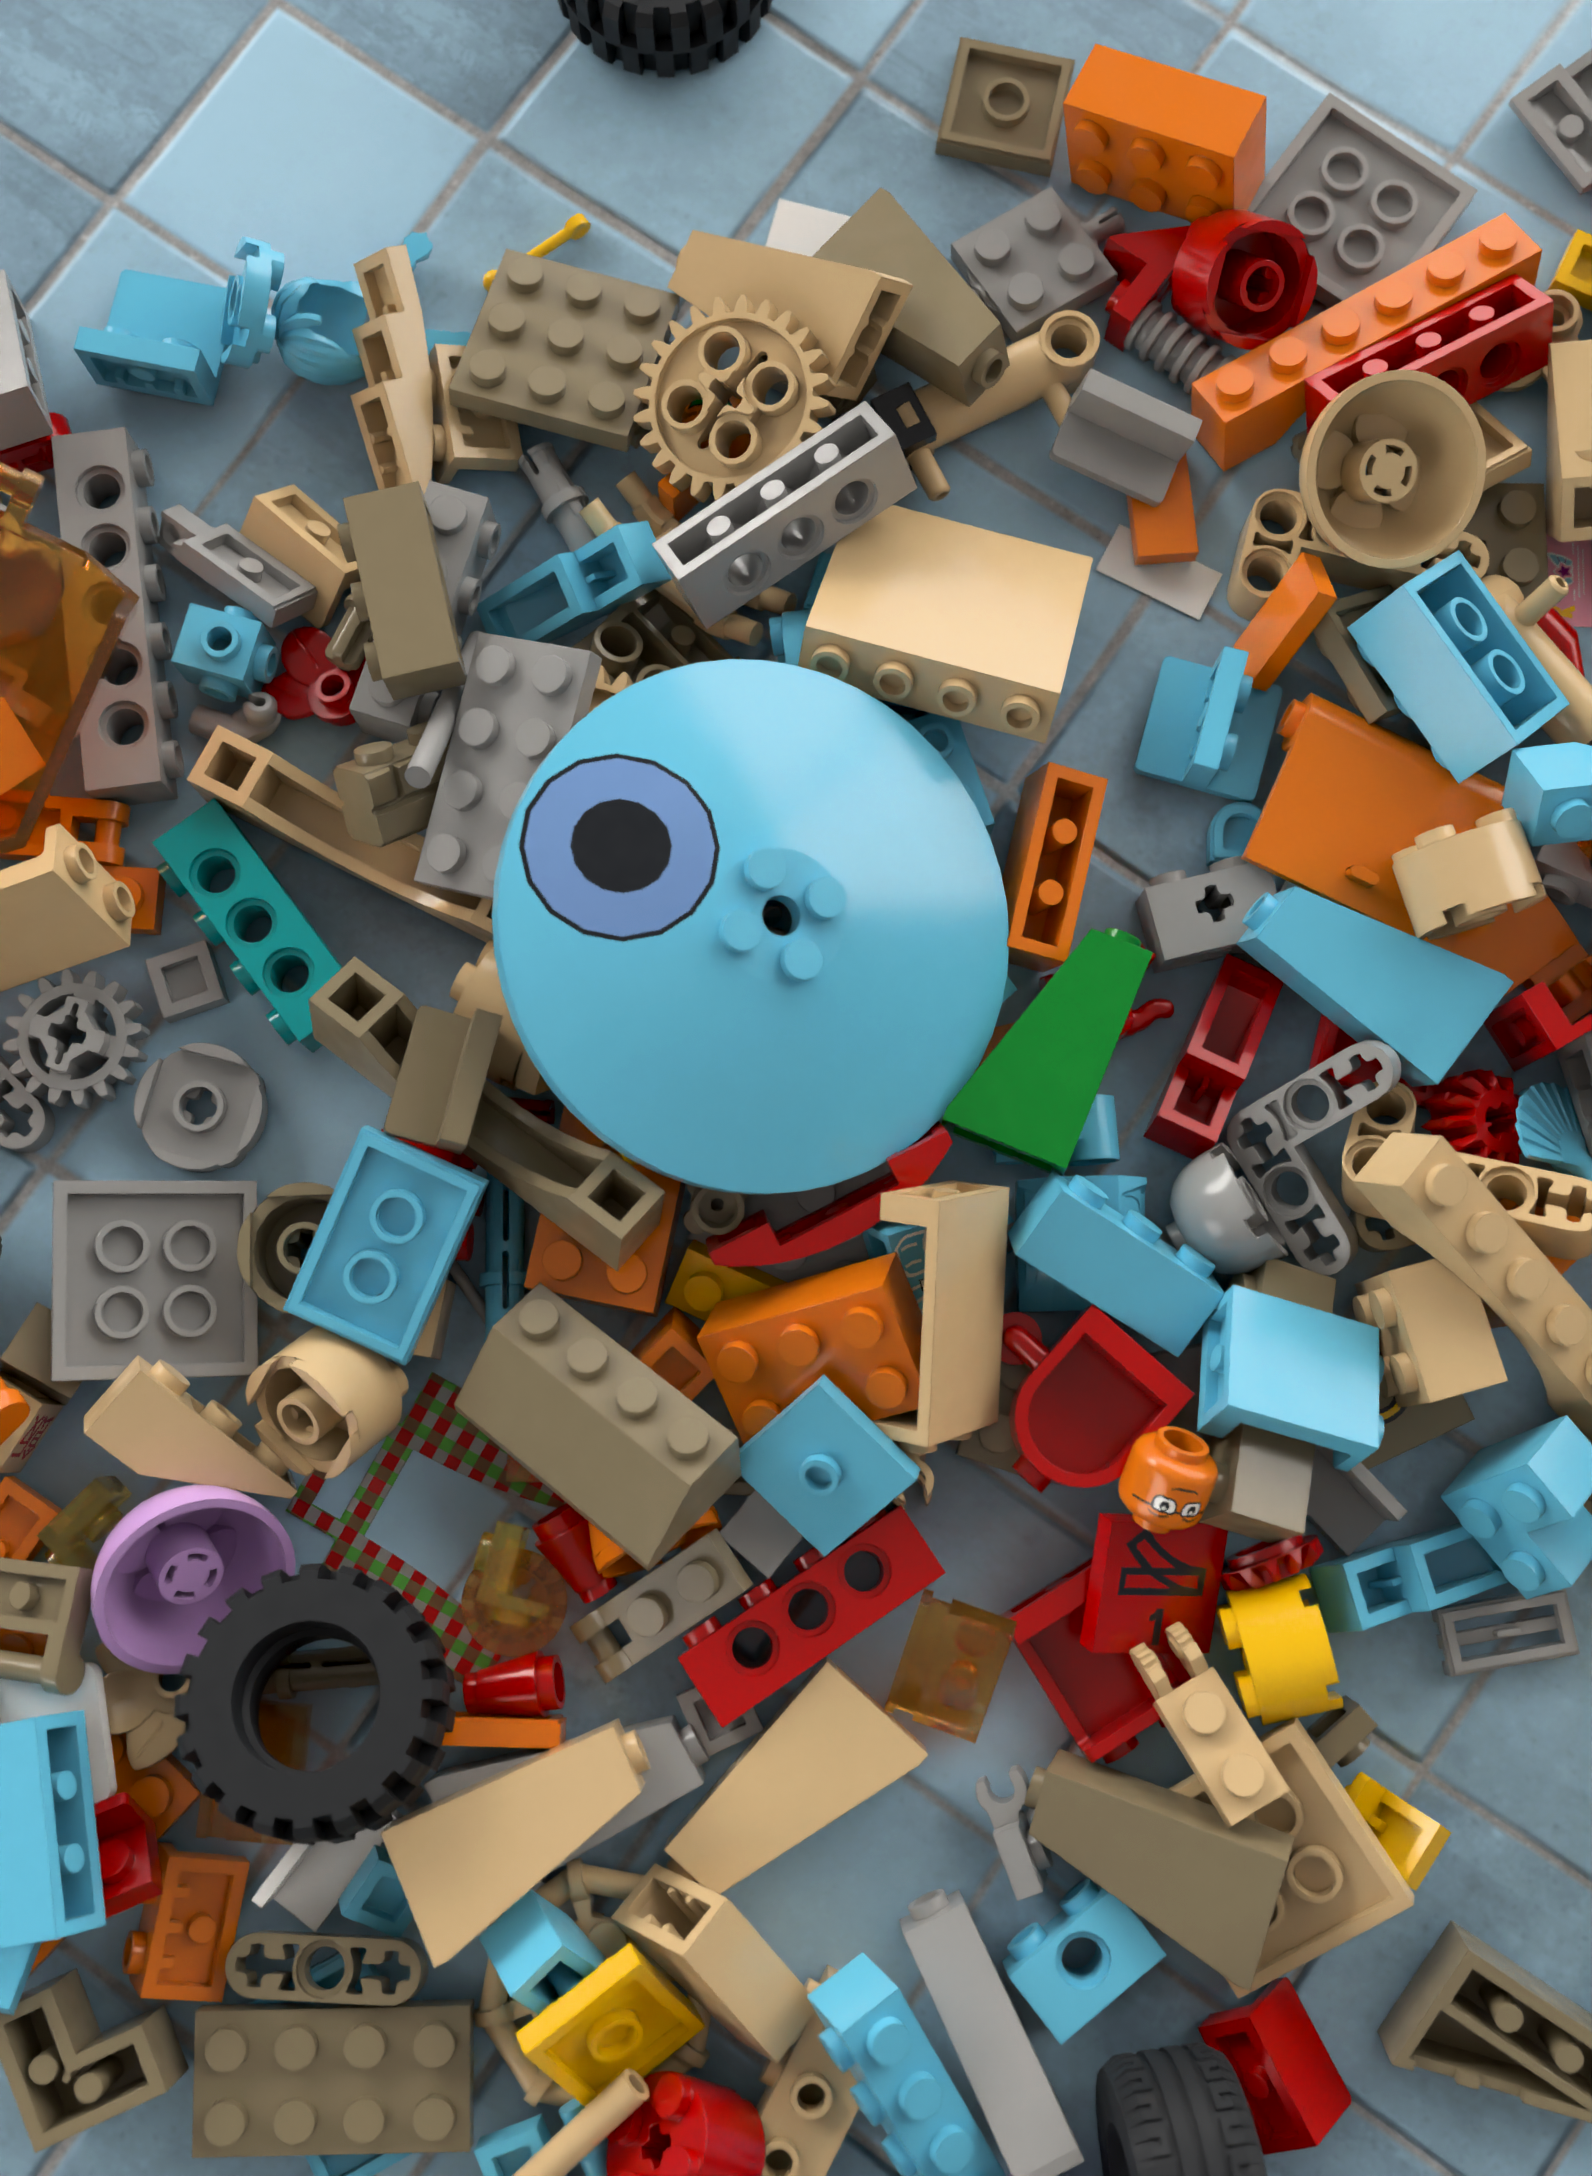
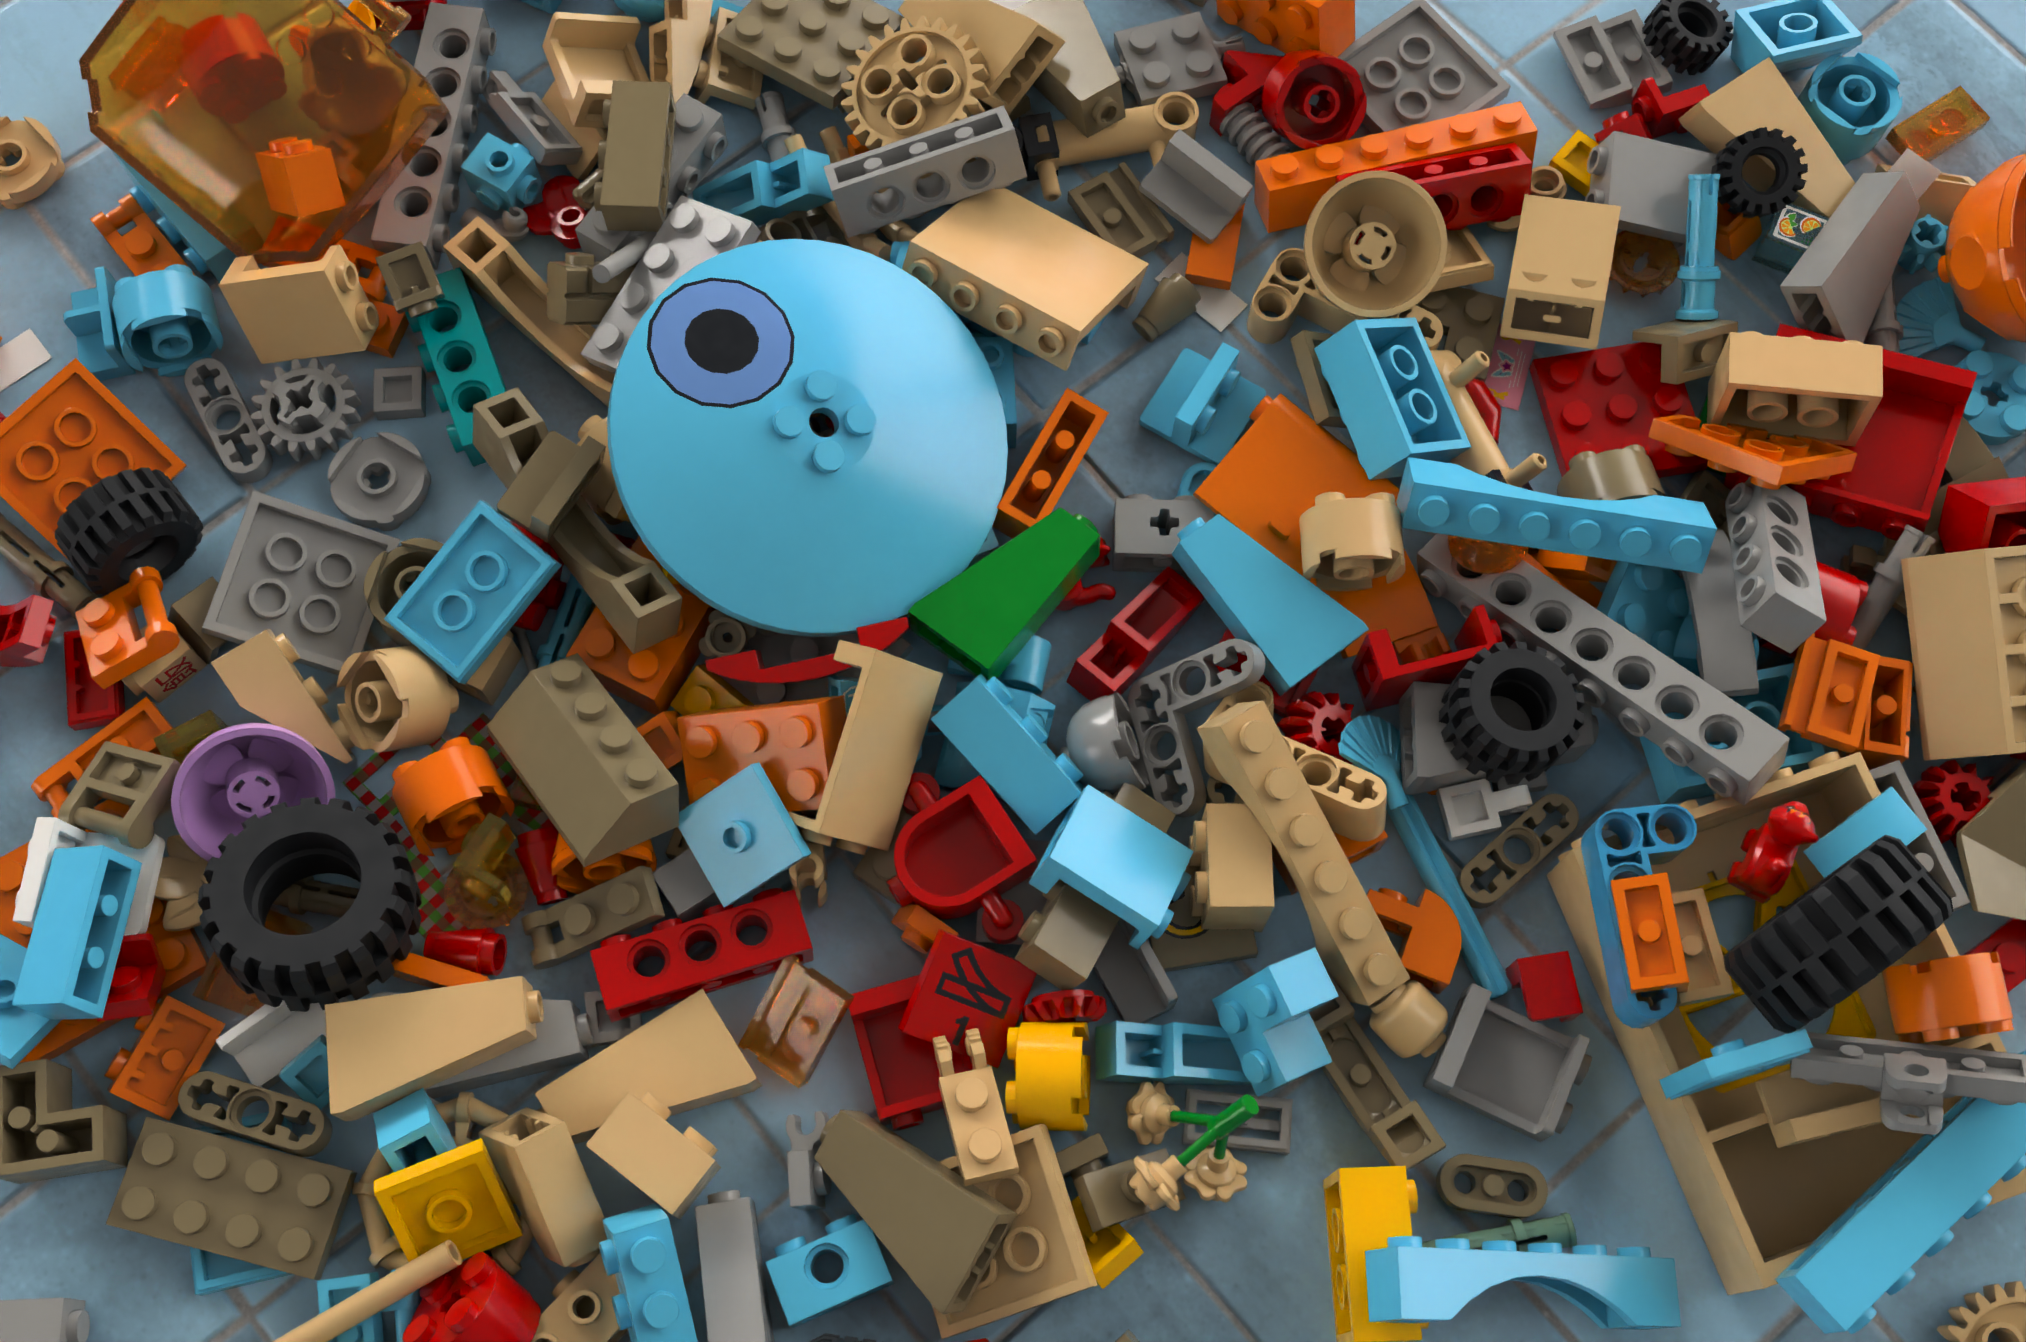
camera: 15 degrees right, 10 degrees down
(162, 839) = (411, 280): none -> dark tan bracket
(299, 469) = (586, 58): none -> tan panel
(436, 1505) = (448, 795): none -> orange brick
(843, 1892) = (654, 1154): none -> tan brick
(1031, 494) = (1120, 213): none -> dark tan plate
(1071, 1509) = (919, 927): none -> orange plate
(1126, 607) = (1167, 306): none -> dark tan cone
(1168, 1479) = (994, 911): orange head -> none
(1286, 620) = (1275, 339): orange tile -> none
(1409, 1759) = (1110, 1198): none -> dark tan plate
(1498, 1703) = (1207, 1169): none -> tan plant

